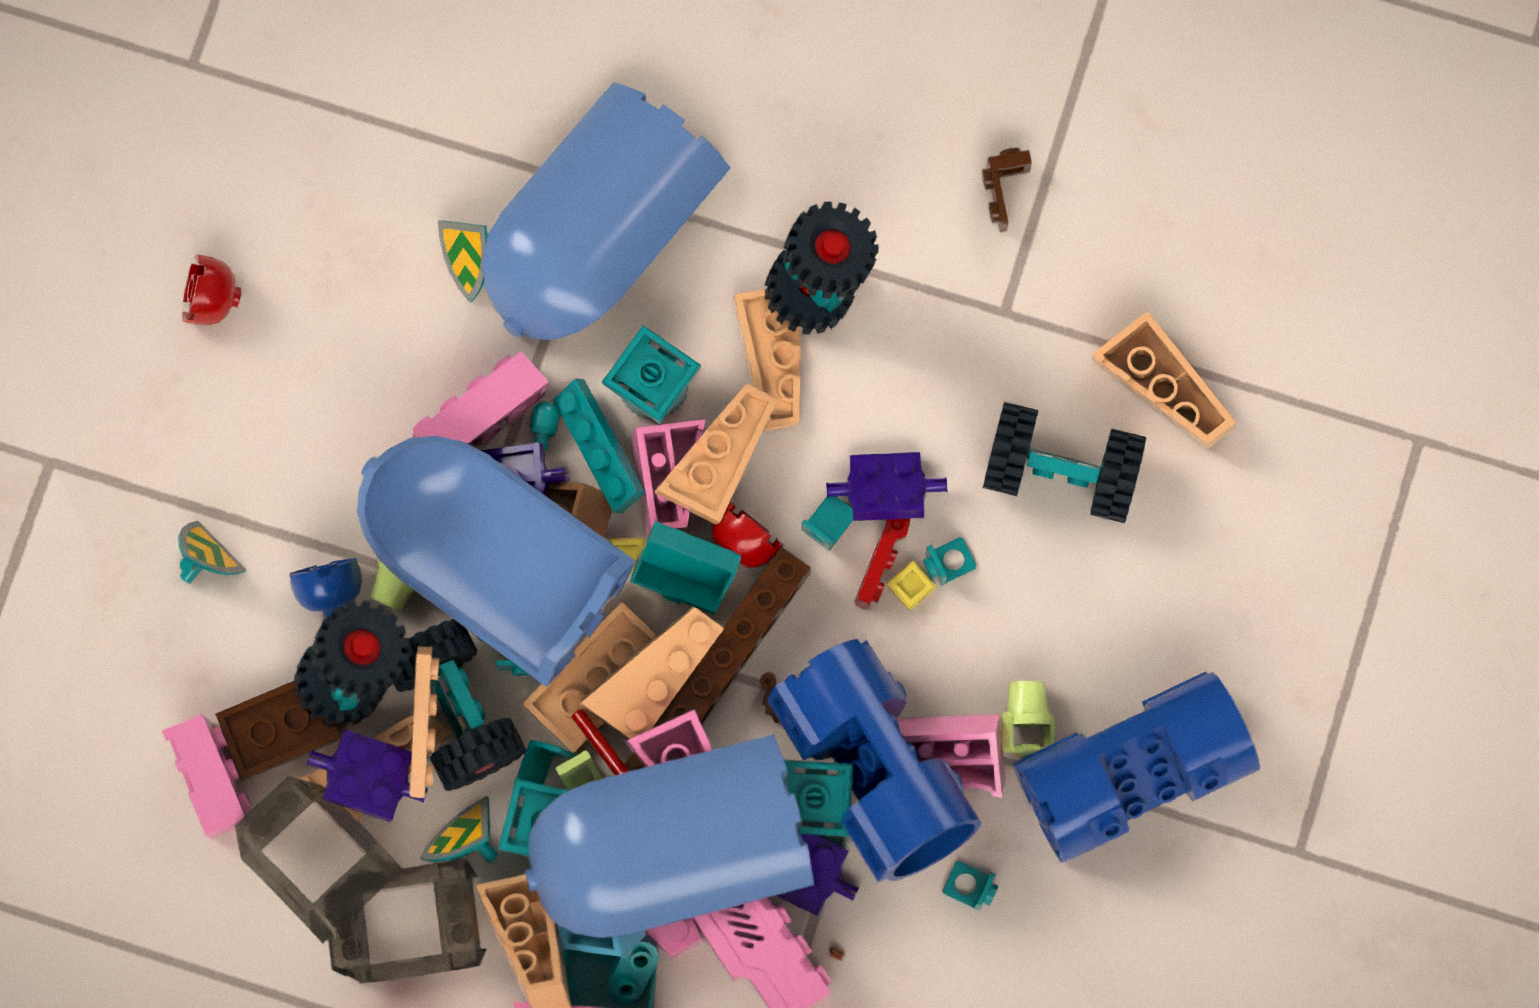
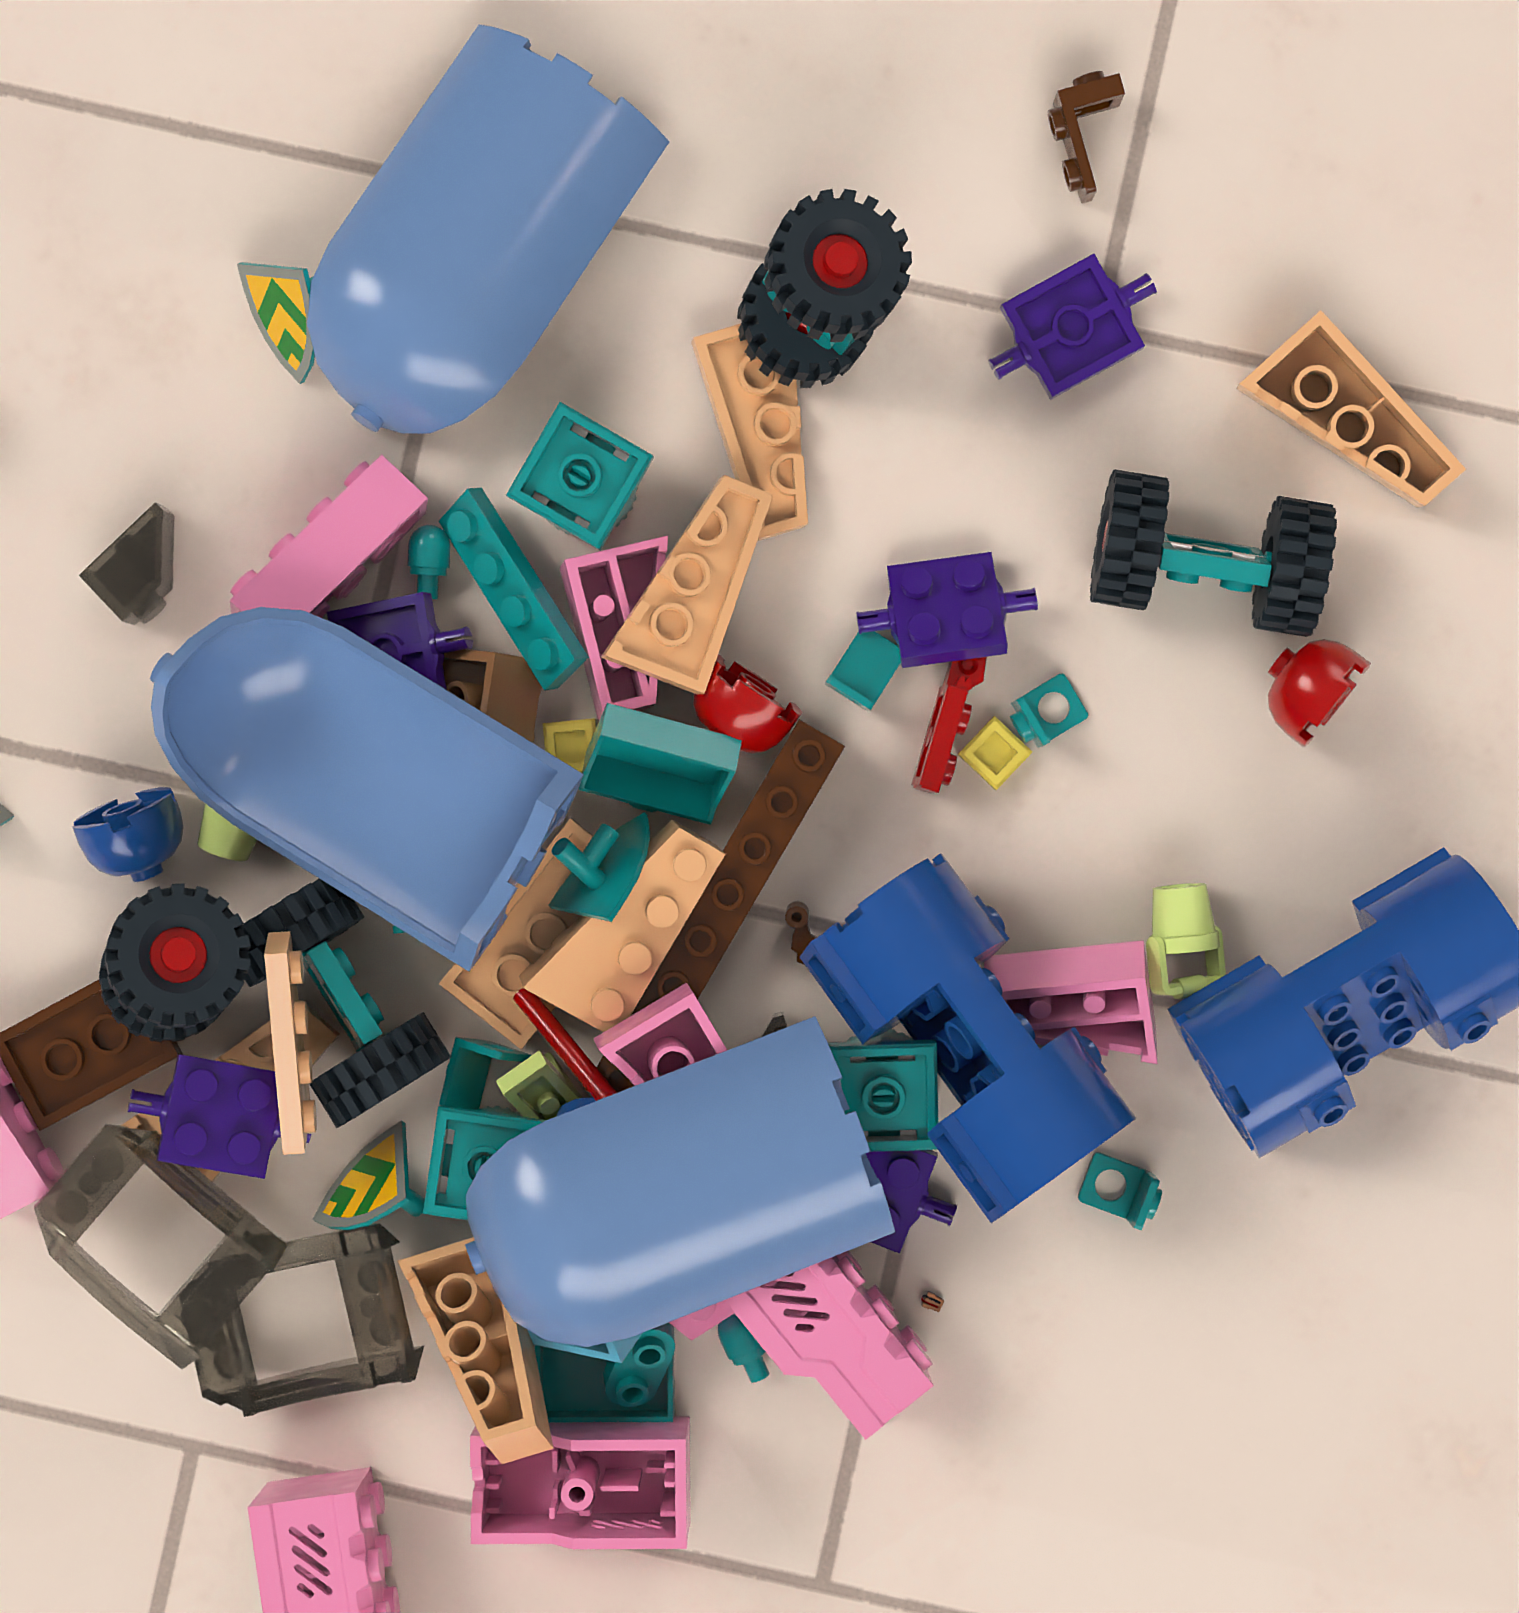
camera: 10 degrees left, 10 degrees up
(349, 411) = (136, 568): none -> clear smoke slope
(640, 632) = (603, 871): none -> teal shield
(705, 967) = (742, 1348): none -> teal cylinder
(986, 310) = (1072, 326): none -> dark purple plate
(1126, 557) = (1311, 685): none -> red cylinder

